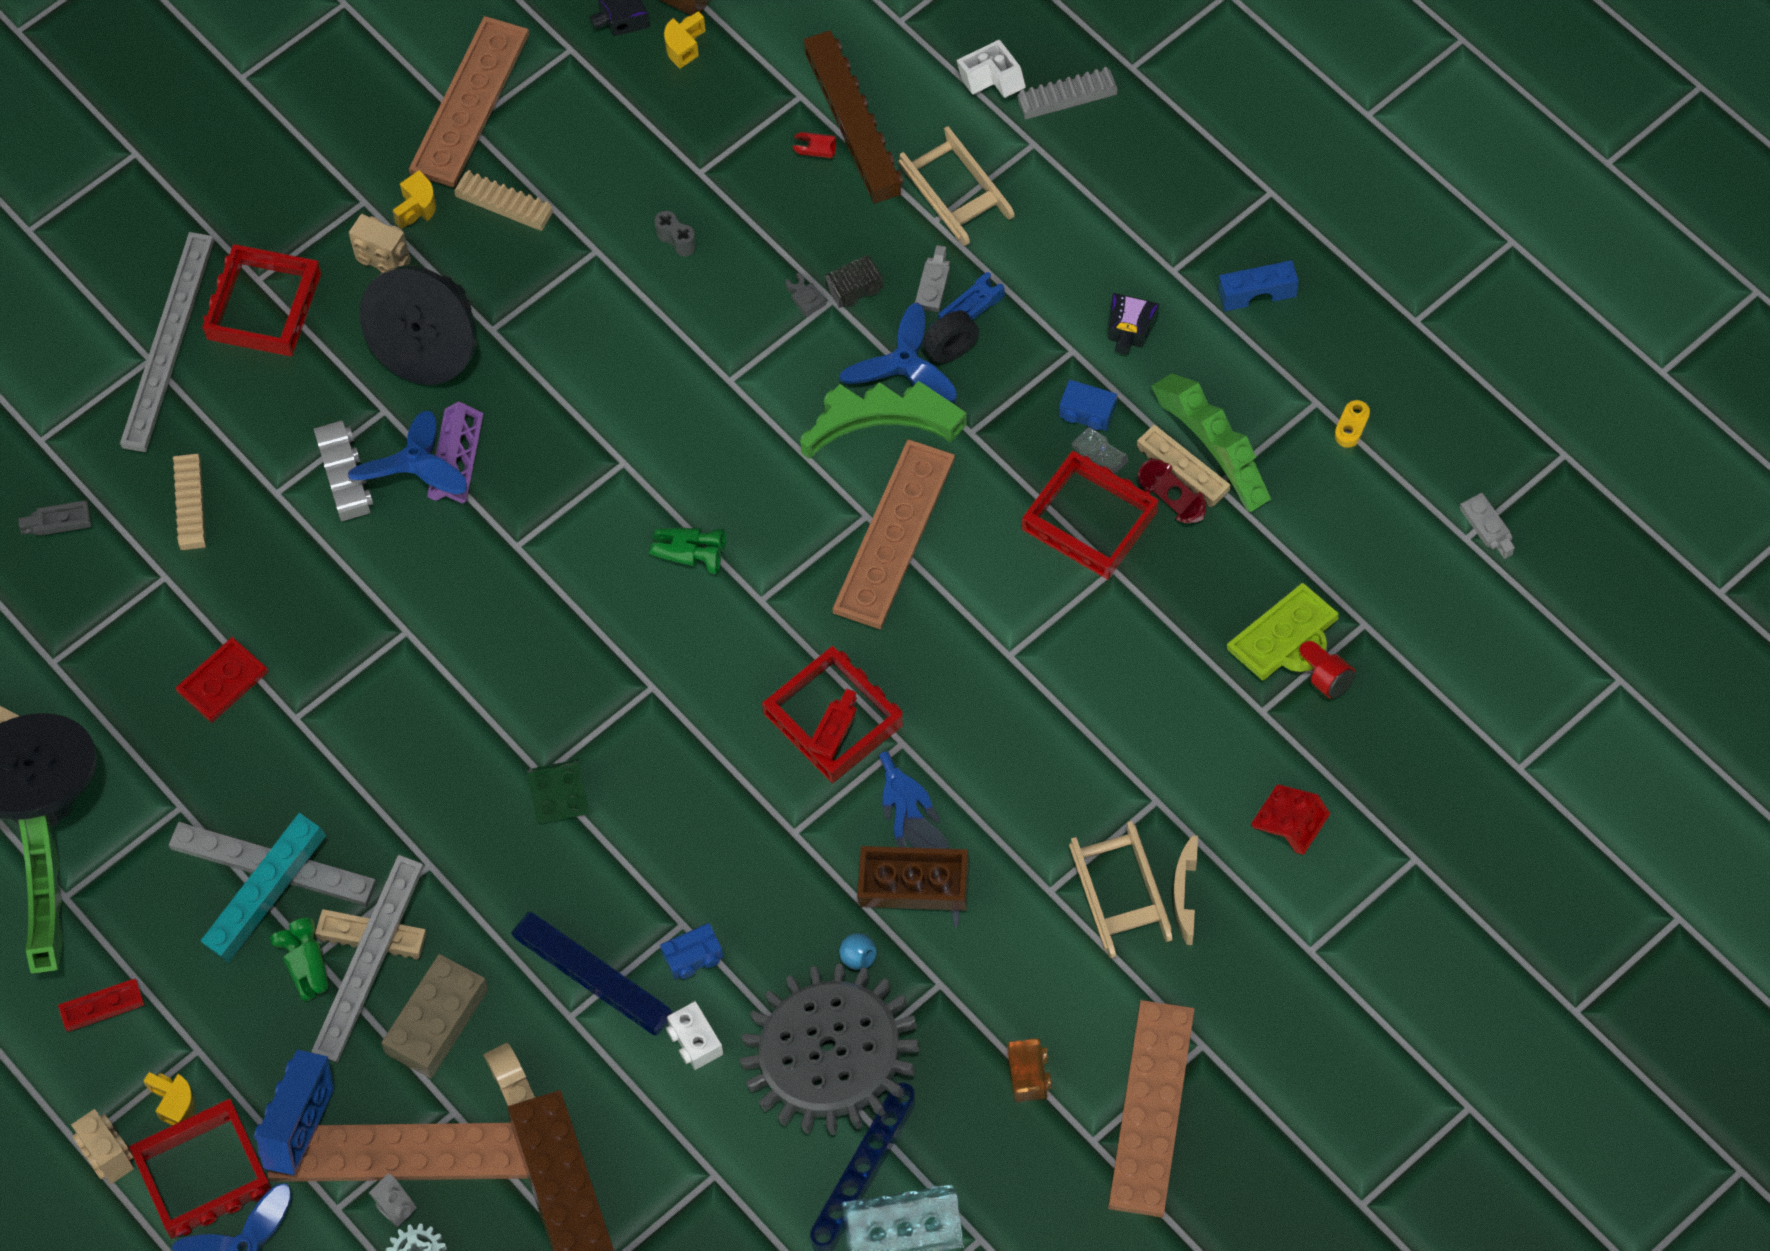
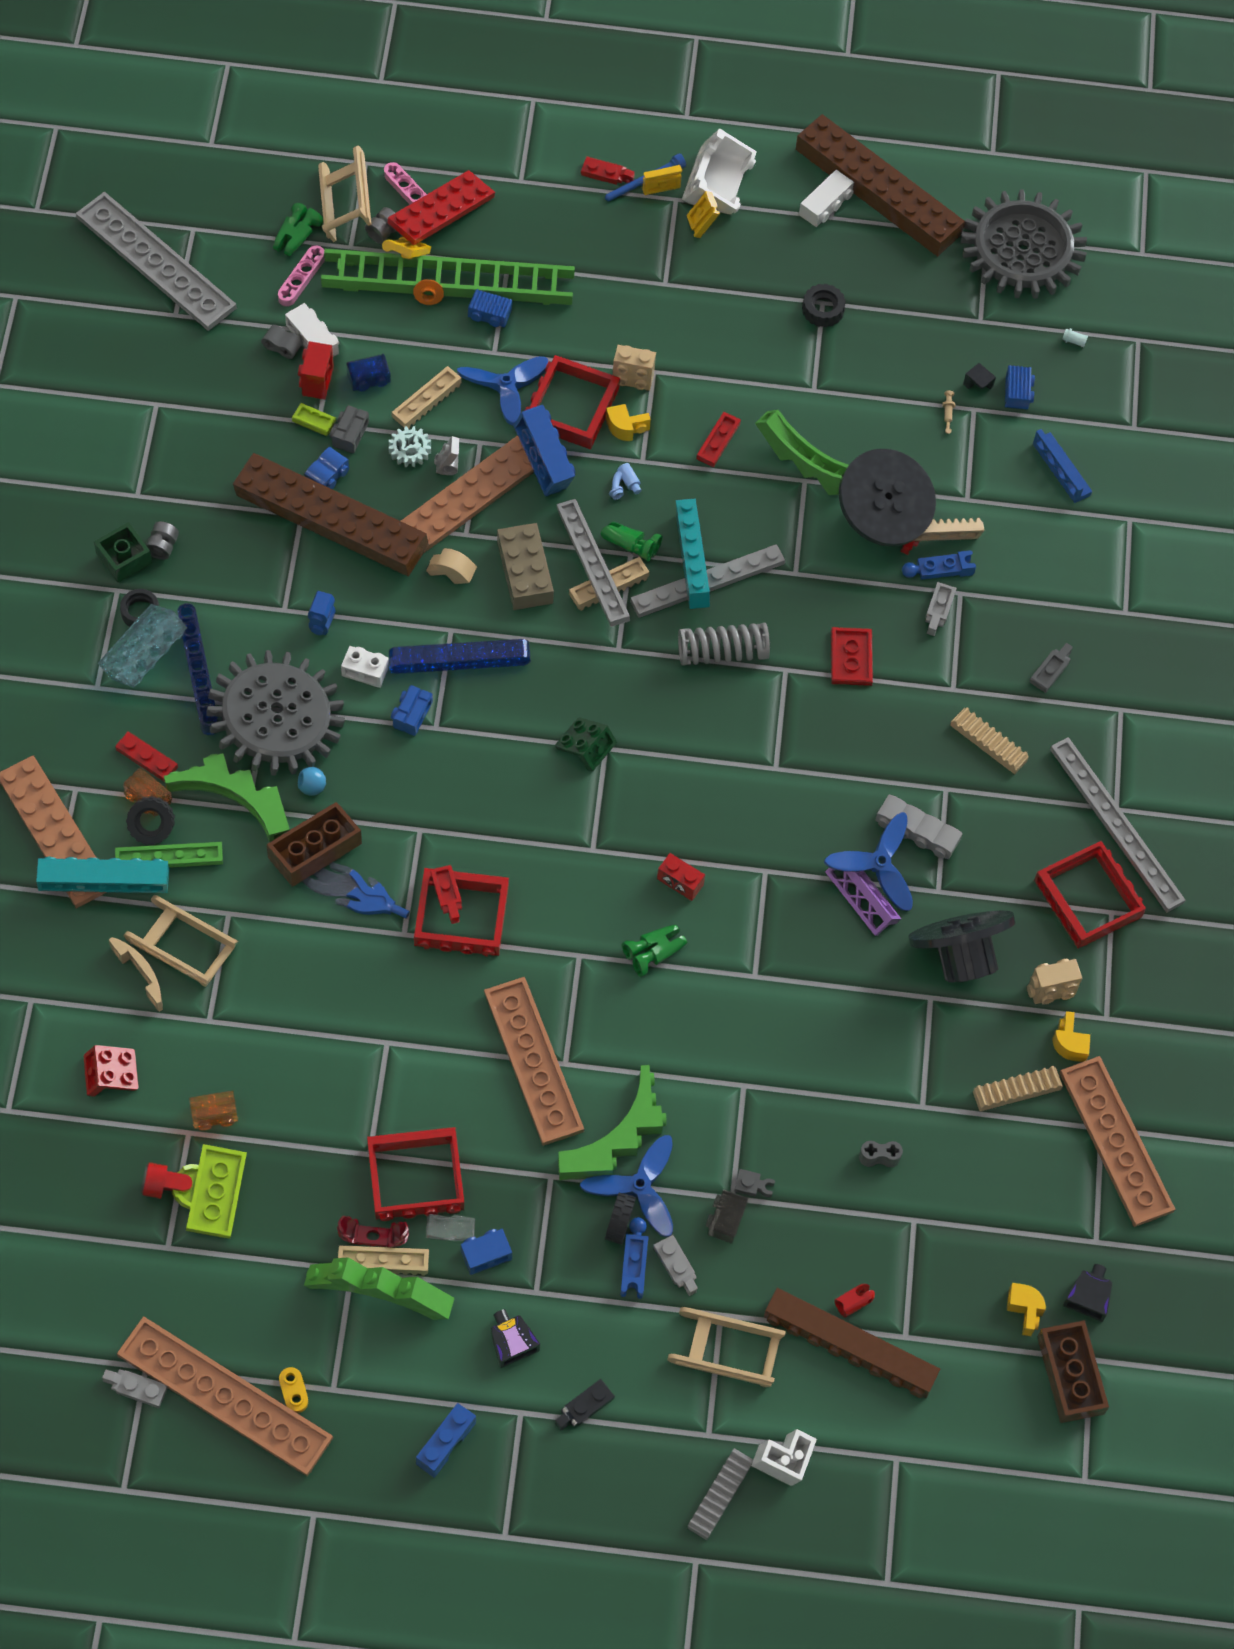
camera: 130 degrees right, 0 degrees up
(41, 695) = (941, 566): none -> blue plate
(90, 657) = (939, 607): none -> light grey hinge
(233, 1033) = (630, 479): none -> light blue plant
(334, 771) = (759, 630): none -> light grey piece
(601, 589) = (681, 876): none -> red brick
(689, 1119) = (321, 613): none -> blue brick
(930, 1004) = (215, 778): none -> bright green arch
(994, 1116) = (146, 756): none -> red plate
(1044, 1037) = (153, 804): none -> black tyre
(1061, 987) = (176, 854): none -> bright green plate
(1116, 234) = (585, 1405): none -> black hinge
(1147, 1003) = (102, 875): none -> teal brick
(1224, 705) = (213, 1110): none -> clear orange brick
(1418, 460) = (225, 1396): none -> nougat plate

